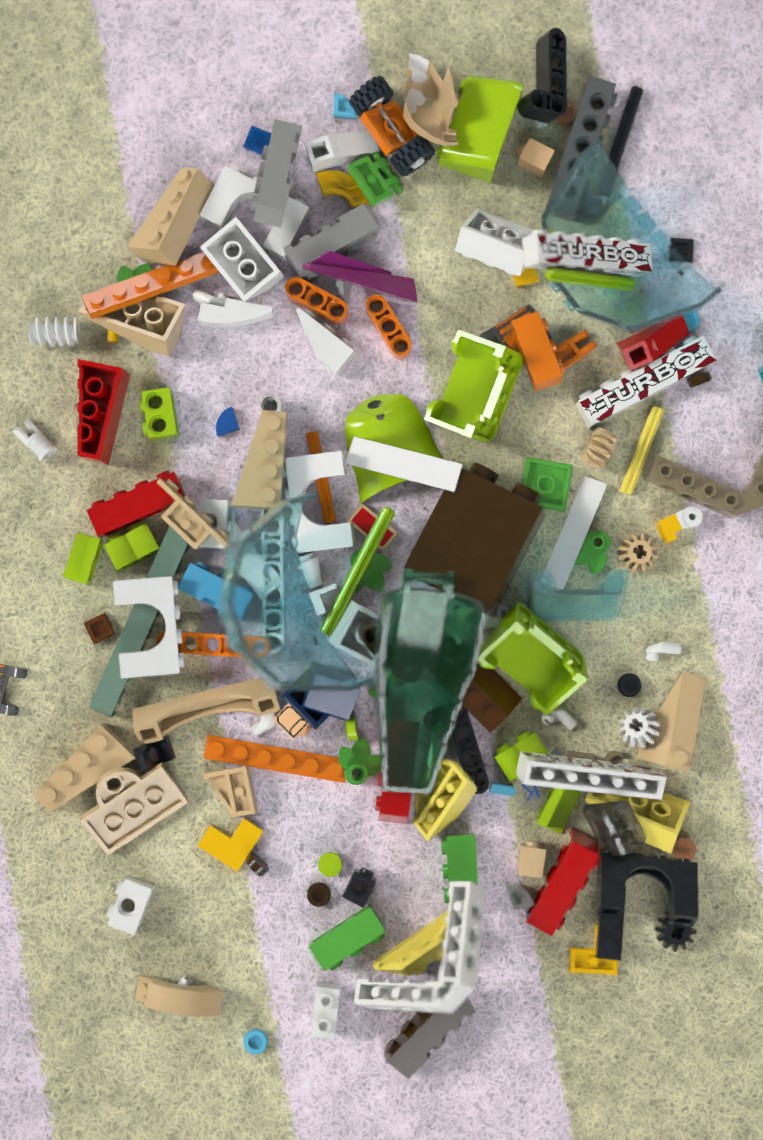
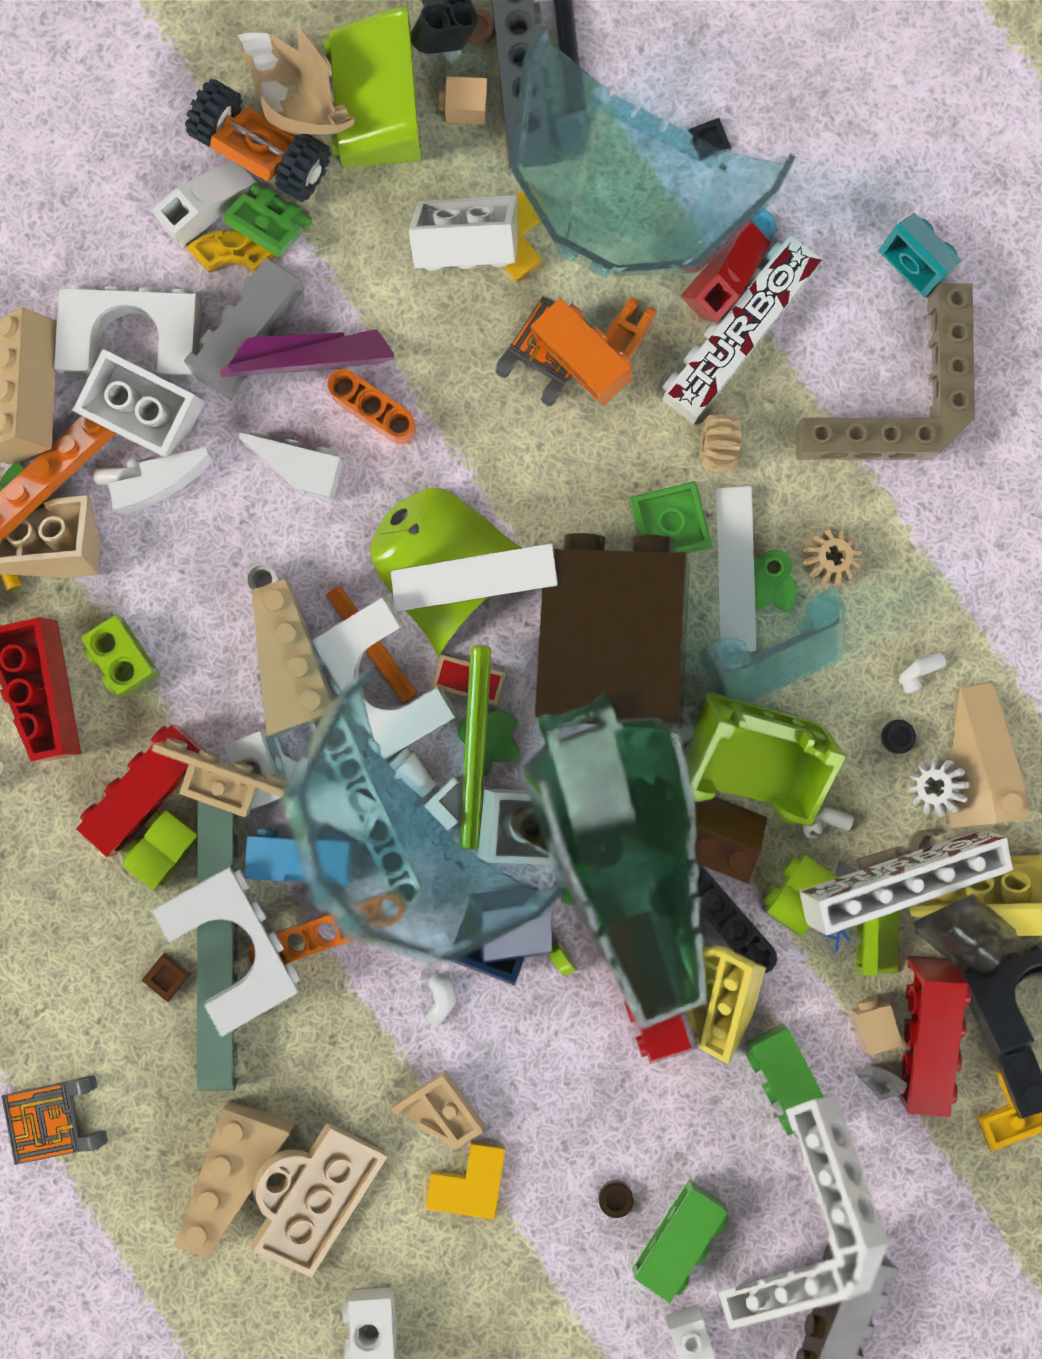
camera: 25 degrees left, 0 degrees up
(83, 558) = (103, 894): lime panel -> none
(154, 753) = (312, 1113): black bracket -> none
(158, 719) = (297, 1065): tan arch -> none
(226, 423) = (214, 628): blue tile -> none
(256, 140) = (90, 238): clear blue tile -> none
(257, 865) = (517, 1198): dark brown tile -> none
(274, 758) = (478, 1044): orange plate -> none
(276, 173) = (130, 267): light grey wedge -> none
(292, 722) = (478, 988): light nougat brick -> none
(310, 291) = (247, 406): orange beam -> none
(330, 864) = (612, 1152): lime tile -> none
(342, 107) = (184, 147): medium azure tile -> none
(344, 290) = (293, 386): light grey tile -> none
(359, 757) = (590, 993): bright green plate -> none
(359, 897) = (666, 1180): black brick -> none
(416, 951) = (779, 1216): light yellow wedge -> none
(477, 387) = (524, 433): lime windscreen -> none
(501, 788) = (795, 949): medium azure tile -> none
(587, 253) = (590, 191): brick -> none
(589, 278) = (608, 223): lime axle -> none
(642, 450) = (776, 422): light yellow axle -> none
(685, 518) = (864, 495): leg -> none
(699, 379) = (809, 295): dark brown tile -> none

